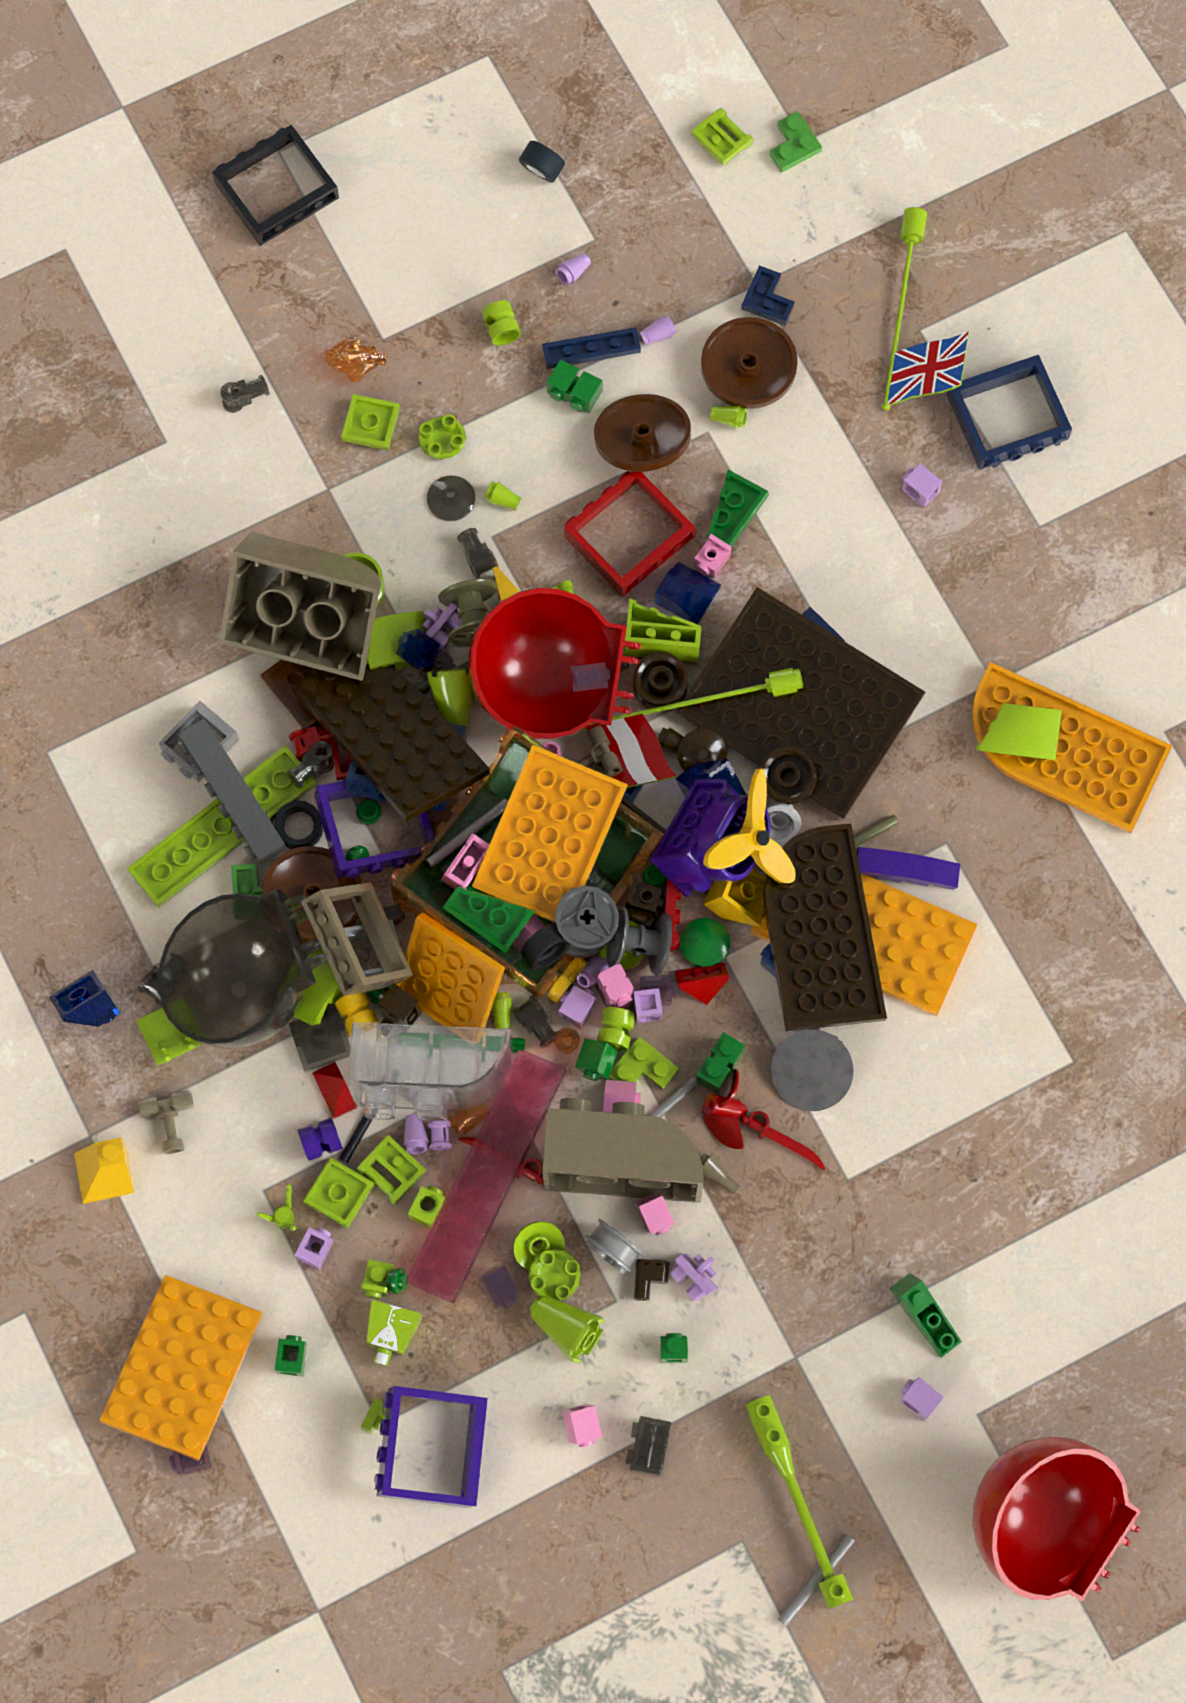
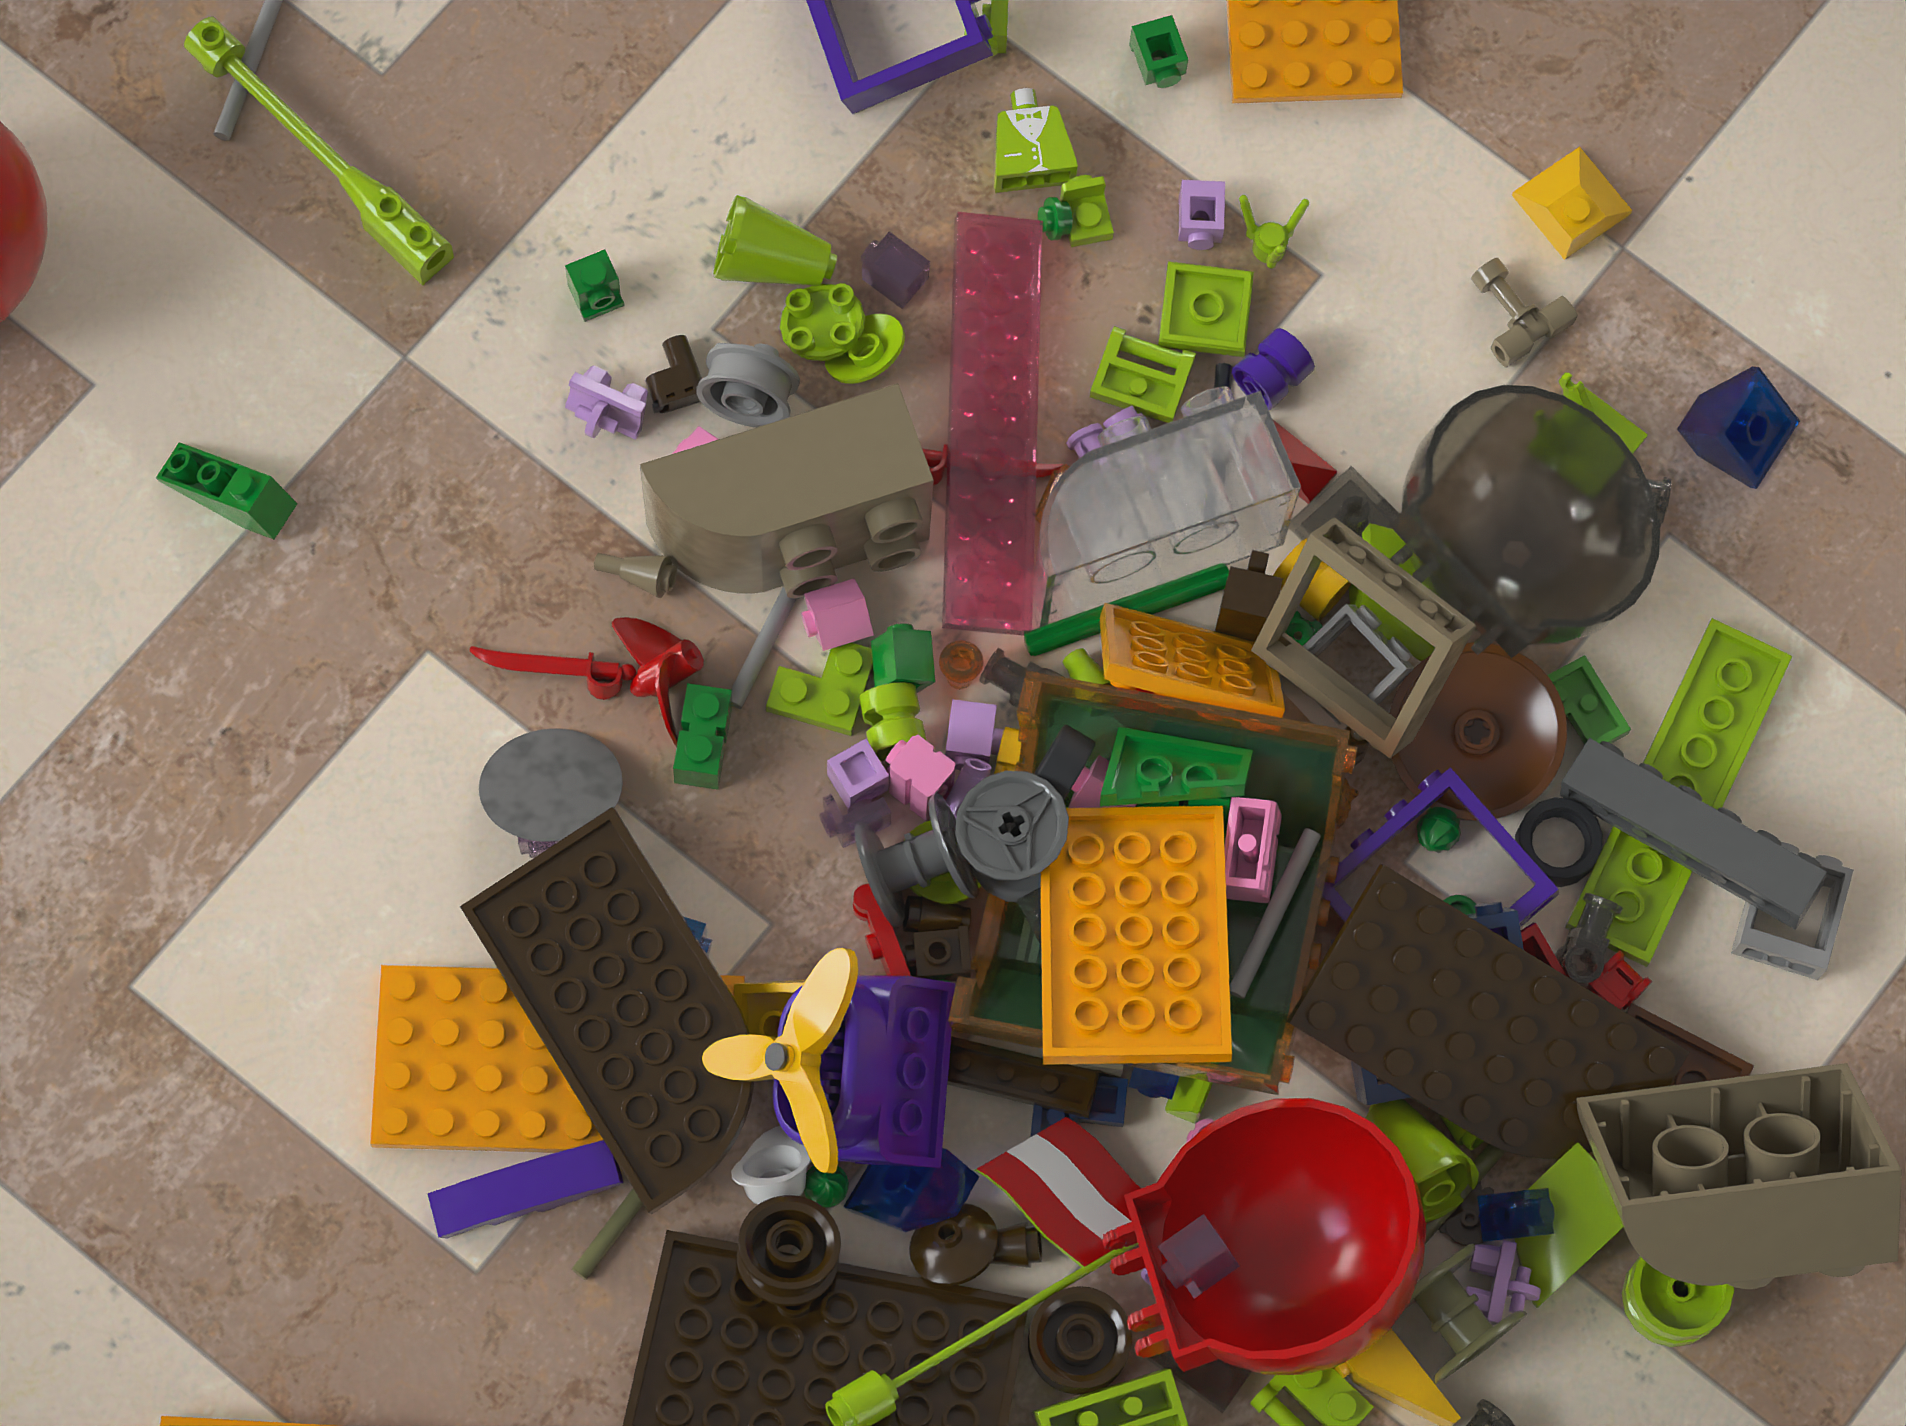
camera: 150 degrees right, 0 degrees up
(423, 1217) = (1067, 323): lime brick -> none
(582, 1425) = (685, 123): bright pink brick -> none
(601, 753) = (1125, 1159): dark tan bar -> none
(649, 1446) = (571, 137): clear smoke brick -> none
(702, 982) = (790, 863): red slope -> none
(704, 942) = (809, 925): green dish -> none
(920, 1397) = (187, 363): lavender brick -> none

